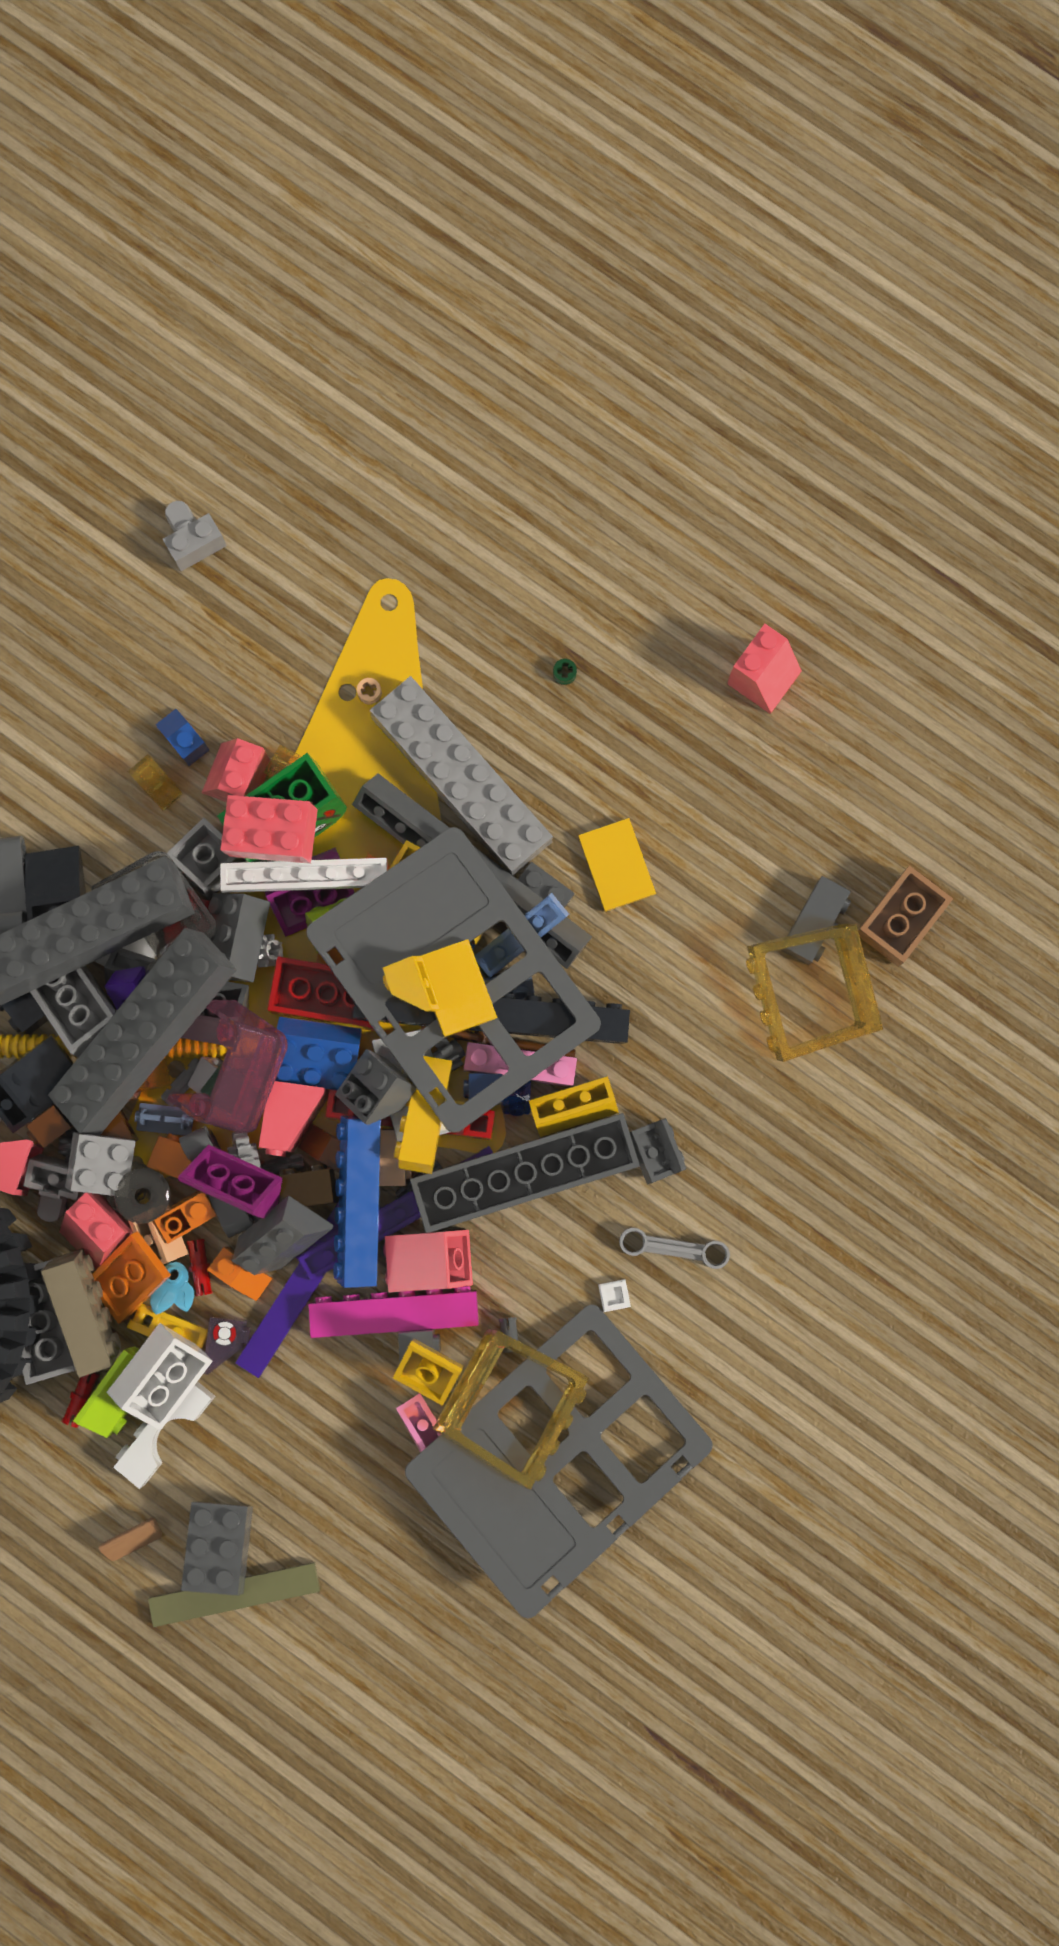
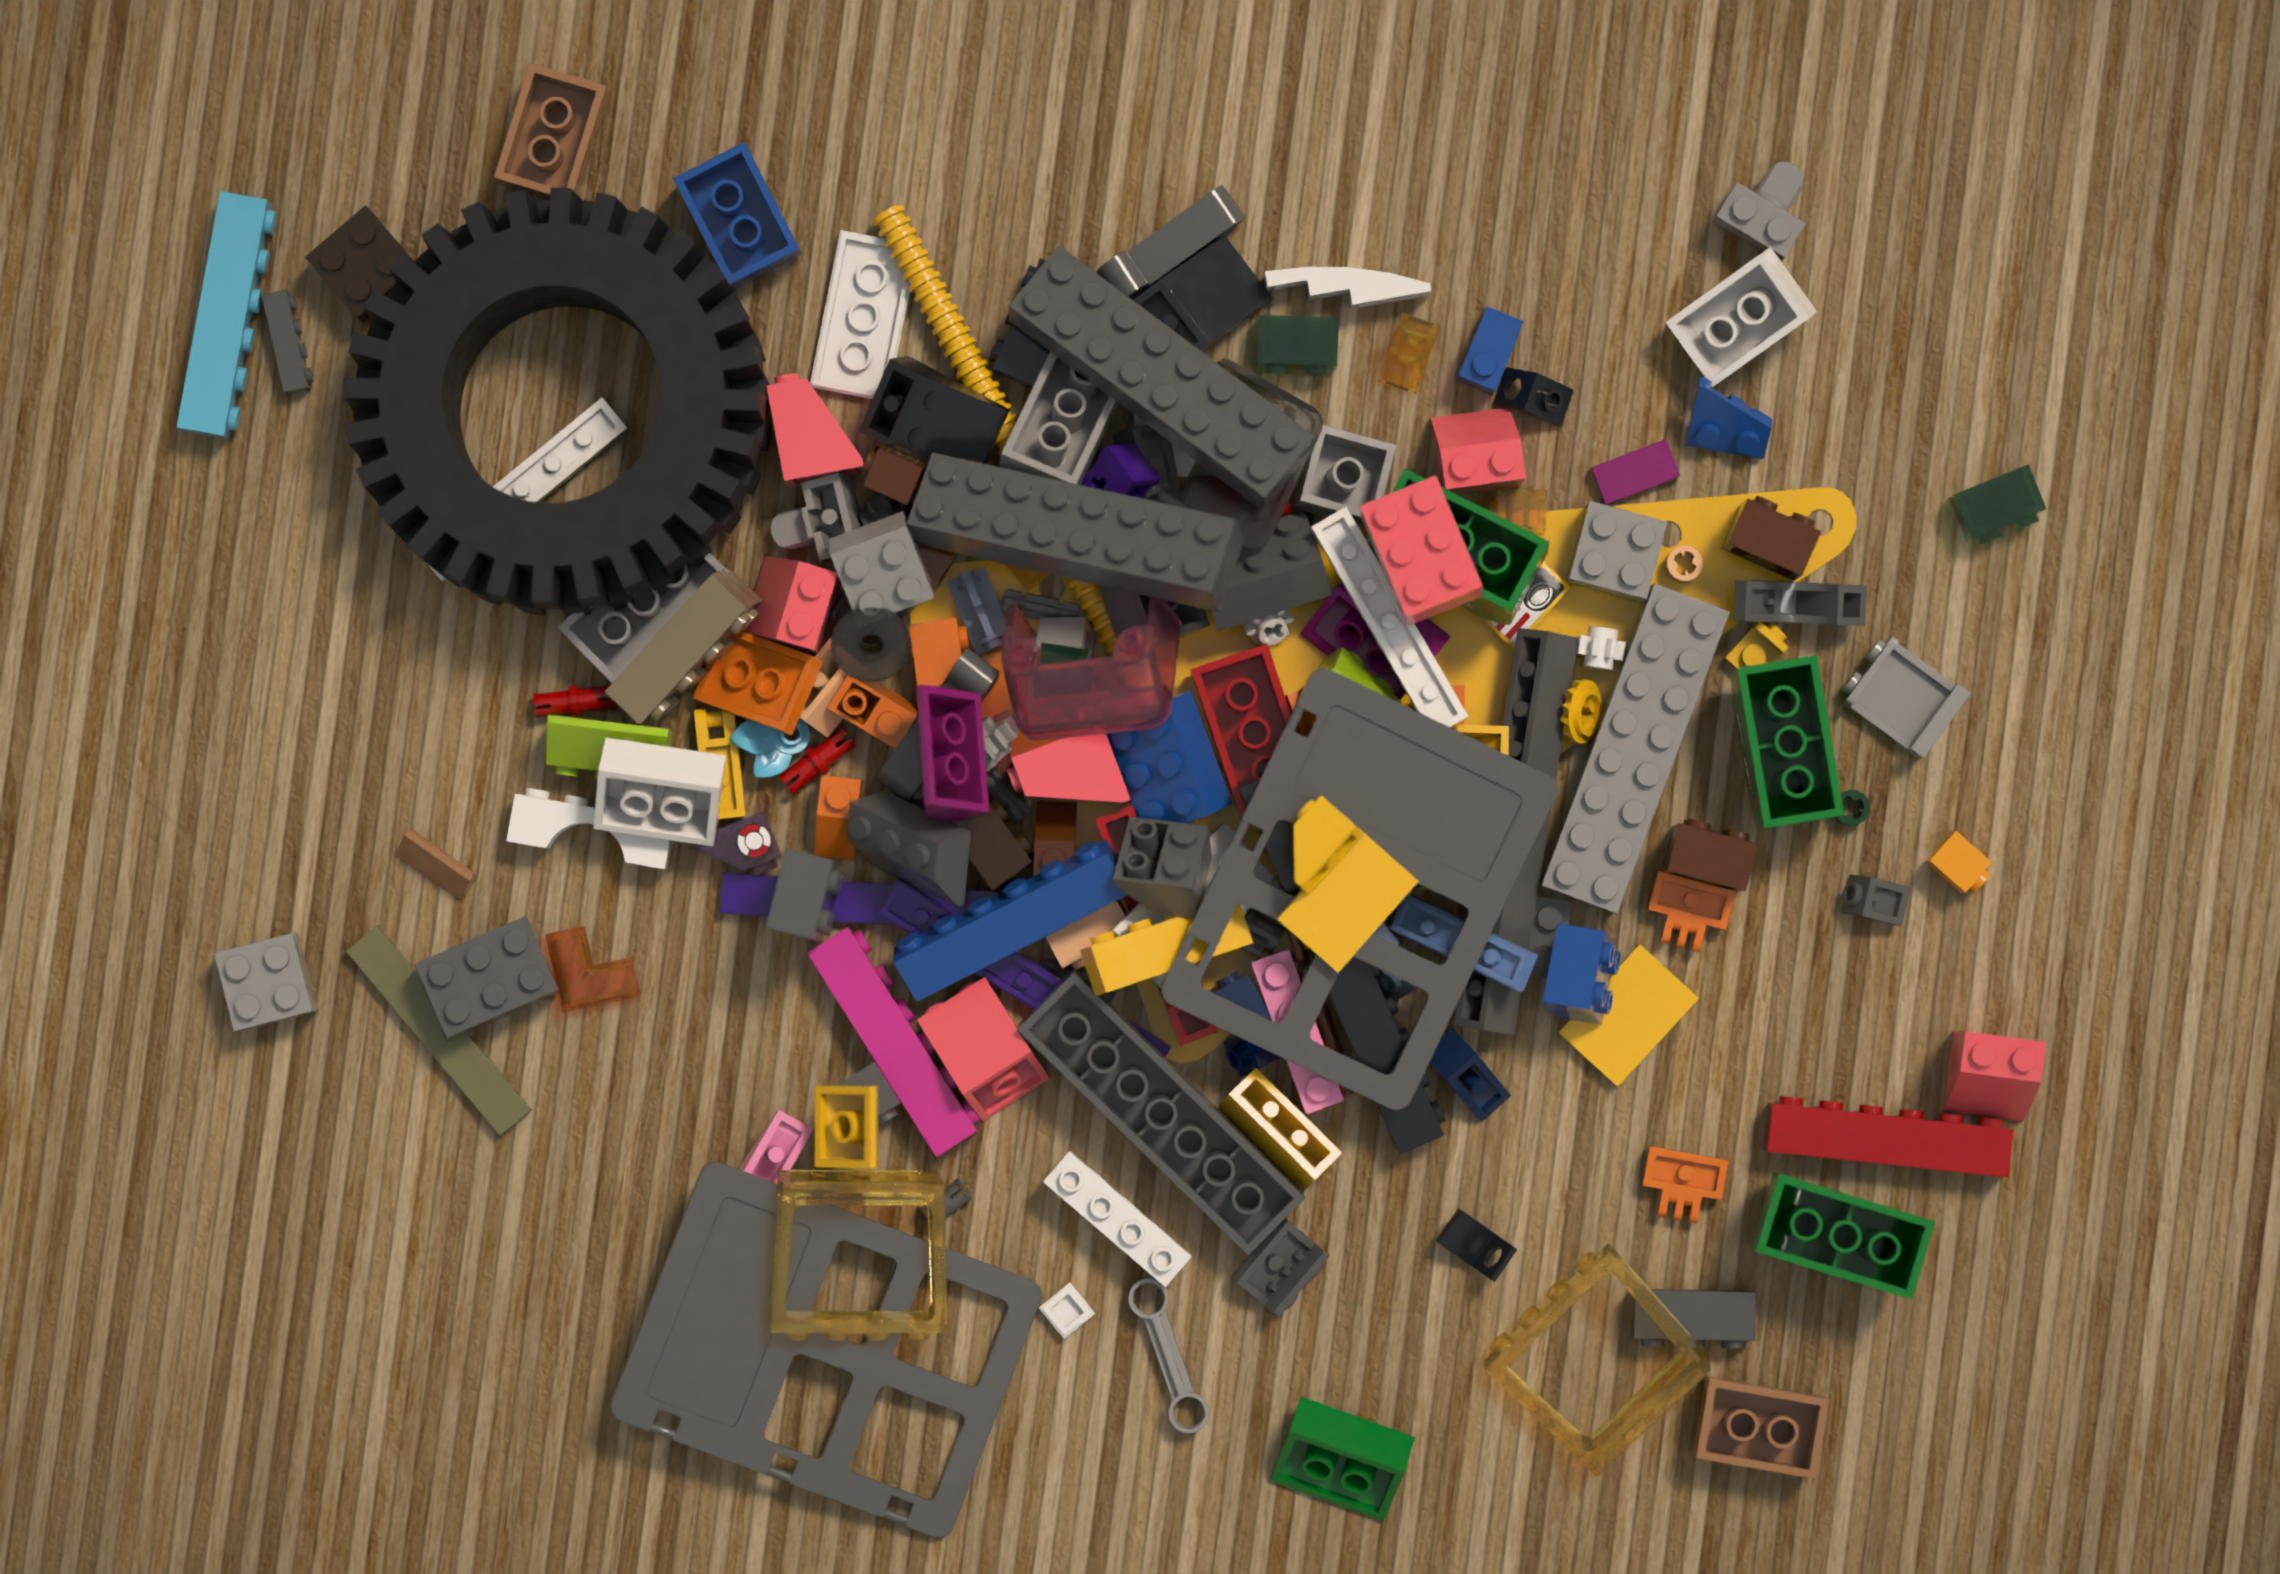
camera: 60 degrees right, 5 degrees up
(100, 789) = (1362, 285): none -> white slope
(113, 844) = (1297, 343): none -> clear green brick
(143, 1689) = (266, 982): none -> light grey brick
(222, 721) = (1537, 396): none -> black bracket
(241, 578) = (1741, 316): none -> white brick
(251, 1488) = (582, 982): none -> clear orange brick
(272, 1320) = (805, 895): none -> dark grey brick
(300, 622) = (1726, 424): none -> blue wing
(300, 691) = (1635, 472): none -> magenta tile
(339, 724) = (1616, 551): none -> light grey brick
(343, 784) = (1540, 599): none -> slope
(381, 629) = (1771, 538): none -> reddish brown brick
(391, 763) = (1601, 648): none -> white gear
(422, 794) = (1581, 711): none -> yellow gear
(428, 634) = (1800, 602): none -> dark grey arch
(434, 494) = (1997, 504): none -> clear green brick
(443, 675) = (1758, 646): none -> yellow bracket
(504, 683) = (1786, 742): none -> green brick
(517, 607) = (1903, 697): none -> light grey panel
(548, 764) = (1709, 856): none -> reddish brown brick
(572, 795) = (1689, 907): none -> orange hinge
(575, 1234) = (1117, 1218): none -> white brick
(577, 877) = (1581, 974): none -> blue brick
(602, 977) = (1468, 1075): none -> dark blue slope
(626, 685) = (1875, 899): none -> dark grey bracket
(631, 626) = (1959, 863): none -> light orange brick
(705, 1027) = (1475, 1244): none -> black bracket
(732, 884) = (1684, 1180): none -> orange hinge
(771, 752) = (1888, 1139): none -> red brick
(792, 1176) = (1342, 1459): none -> green slope
(816, 804) = (1842, 1235): none -> green brick

